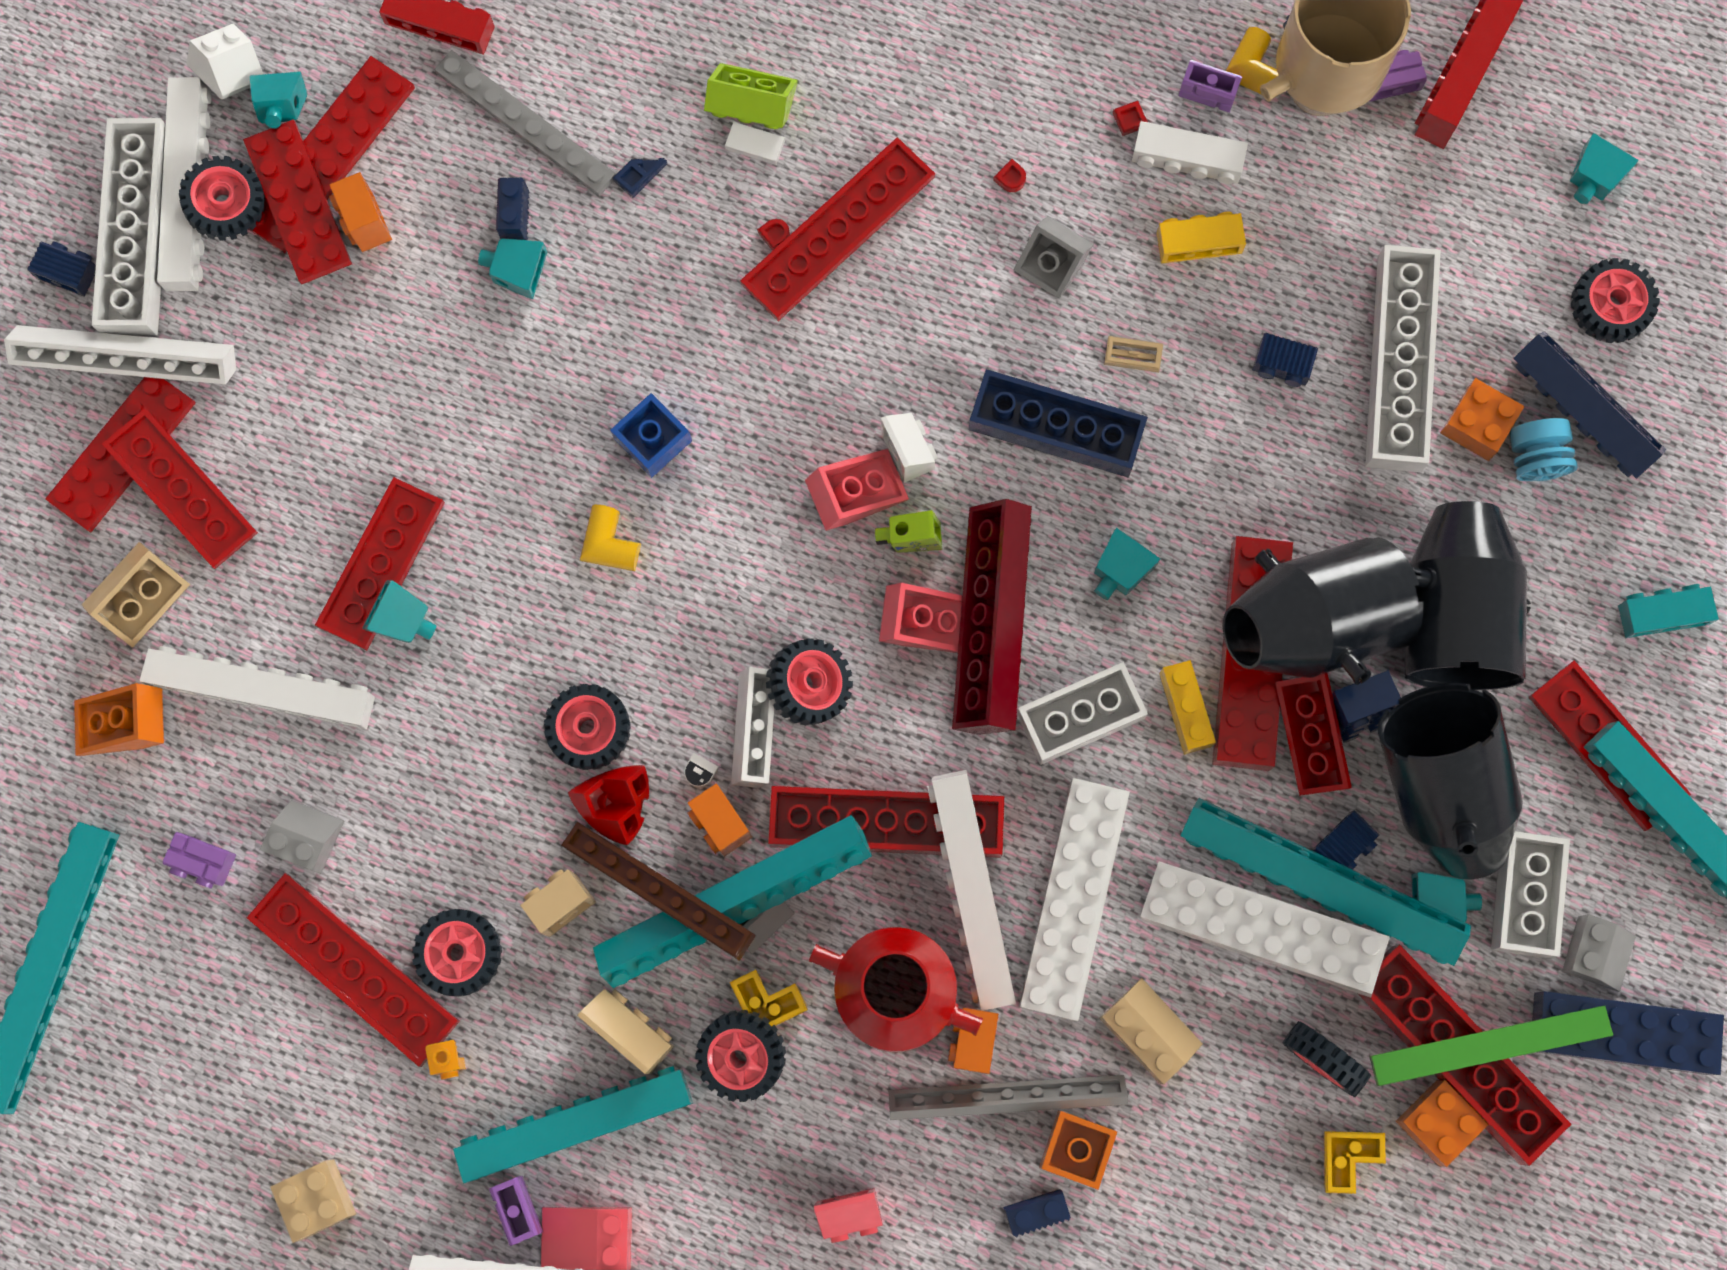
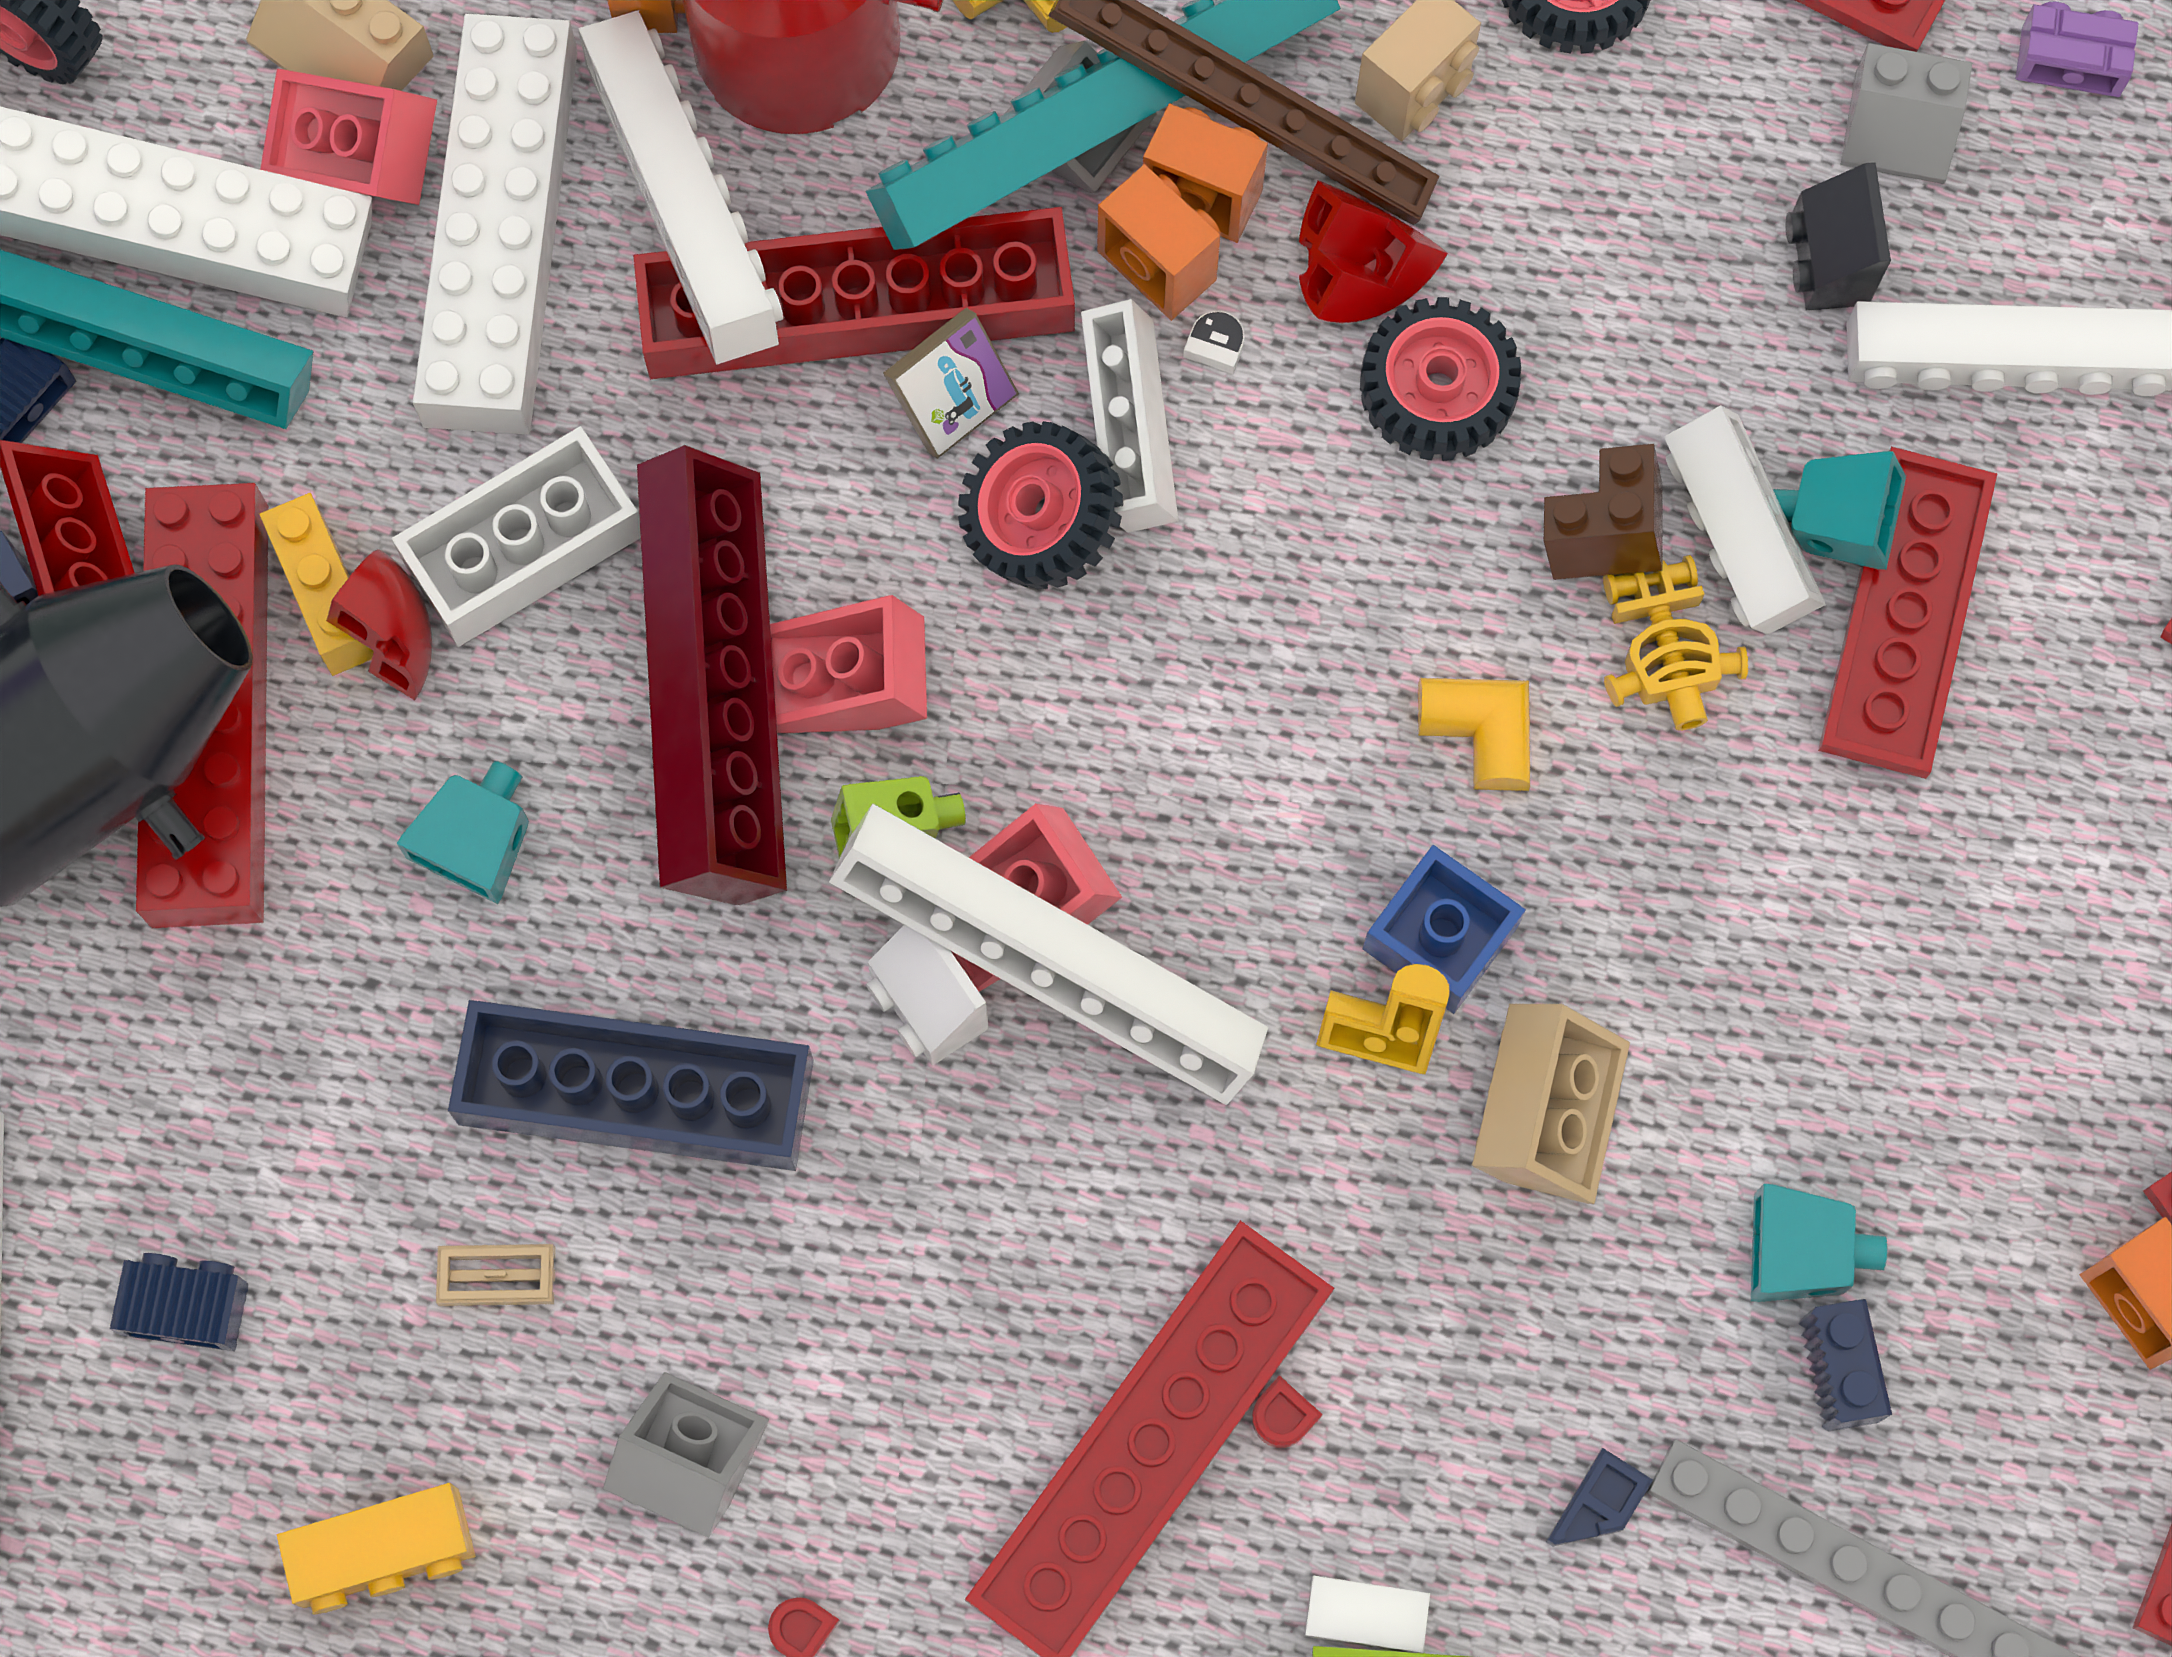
camera: 165 degrees right, 5 degrees down
(359, 763) = (1839, 240): none -> black slope
(451, 619) = (1743, 521): none -> white brick
(504, 547) = (1678, 680): none -> yellow piece
(514, 622) = (1611, 528): none -> reddish brown brick
(619, 349) = (1551, 1101): none -> tan slope
(679, 392) = (1393, 1033): none -> yellow brick
(688, 857) = (1210, 165): none -> orange brick
(844, 760) = (951, 383): none -> tile
(847, 441) = (1049, 954): none -> white brick
(1150, 961) = (349, 135): none -> coral slope
(1155, 679) = (390, 617): none -> red brick

